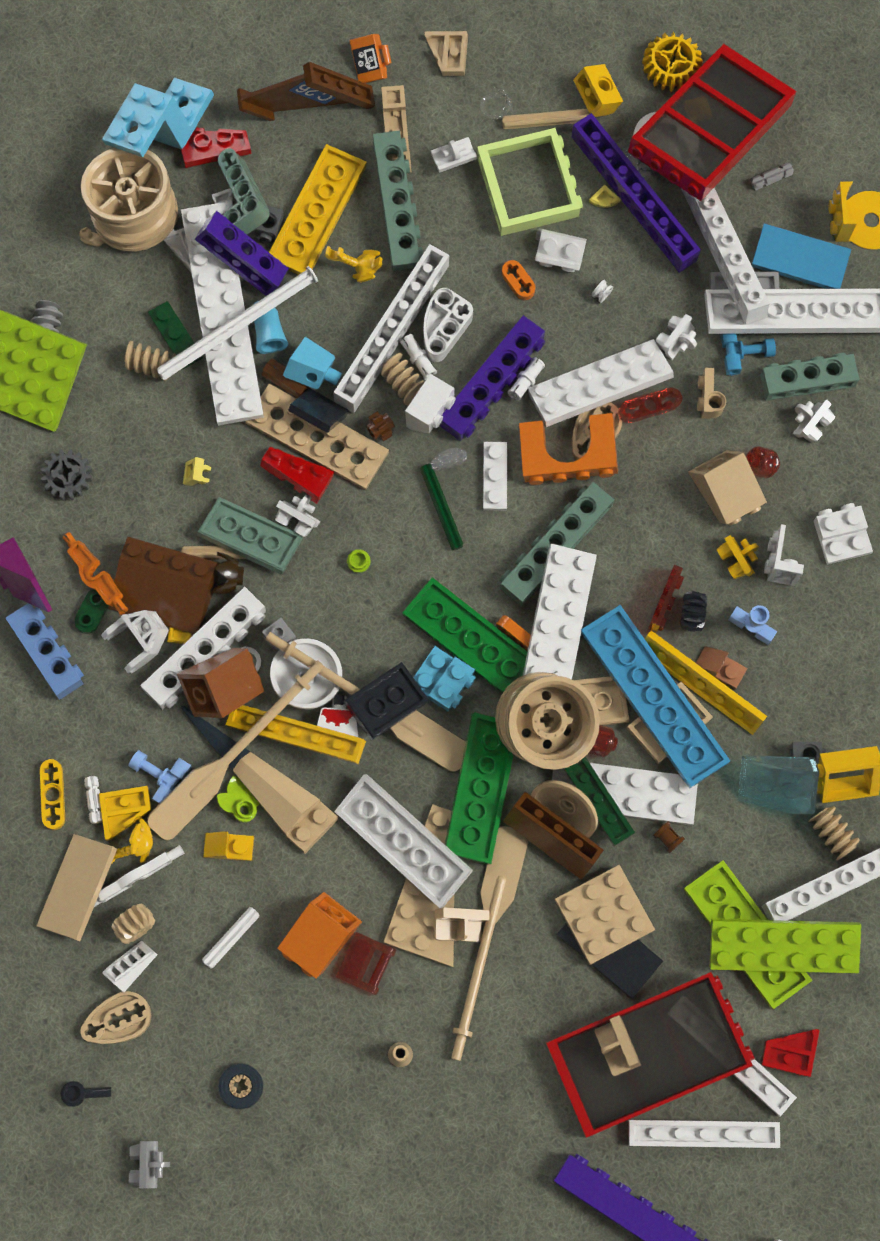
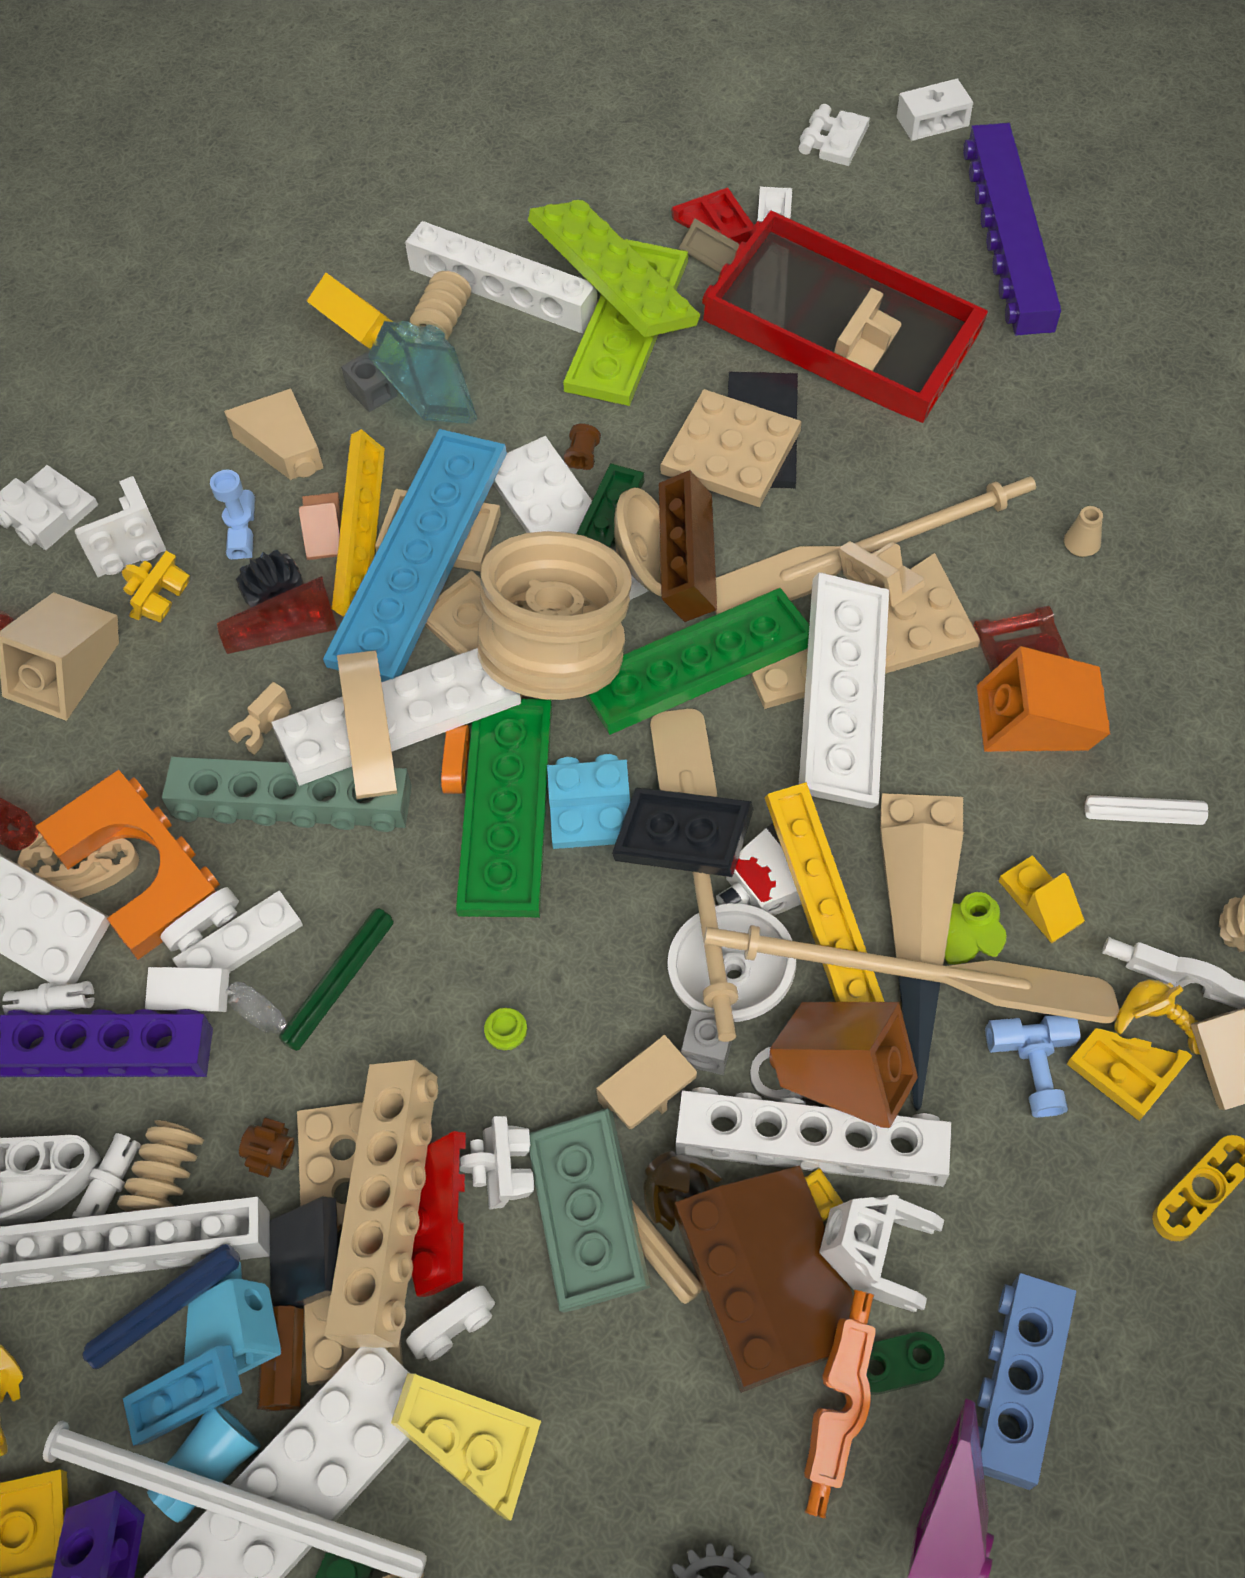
camera: 120 degrees left, 15 degrees down
(93, 799) = (1154, 1123): white axle -> none
(193, 427) = (470, 1438): none -> light yellow wing
(194, 470) = (548, 1380): light yellow tile -> none
(245, 460) = (467, 1312): none -> white plate
(281, 596) = (646, 1083): none -> tan panel
(296, 331) = (182, 1395): none -> dark azure plate
(312, 451) = (382, 1207): none -> tan brick
(340, 344) = (161, 1306): none -> dark blue axle
(429, 404) = (184, 1084): white slope -> none
(483, 437) = (187, 989): none -> white tile
(514, 456) = (186, 930): none -> white plate
(560, 595) = (366, 724): none -> tan slope
(613, 564) = (268, 707): none -> tan plate
(703, 1134) = (867, 230): white plate -> none
(766, 1028) = (708, 246): none -> dark tan tile
(800, 683) = (277, 434): none -> tan slope
(807, 1194) = (843, 136): none -> white plate

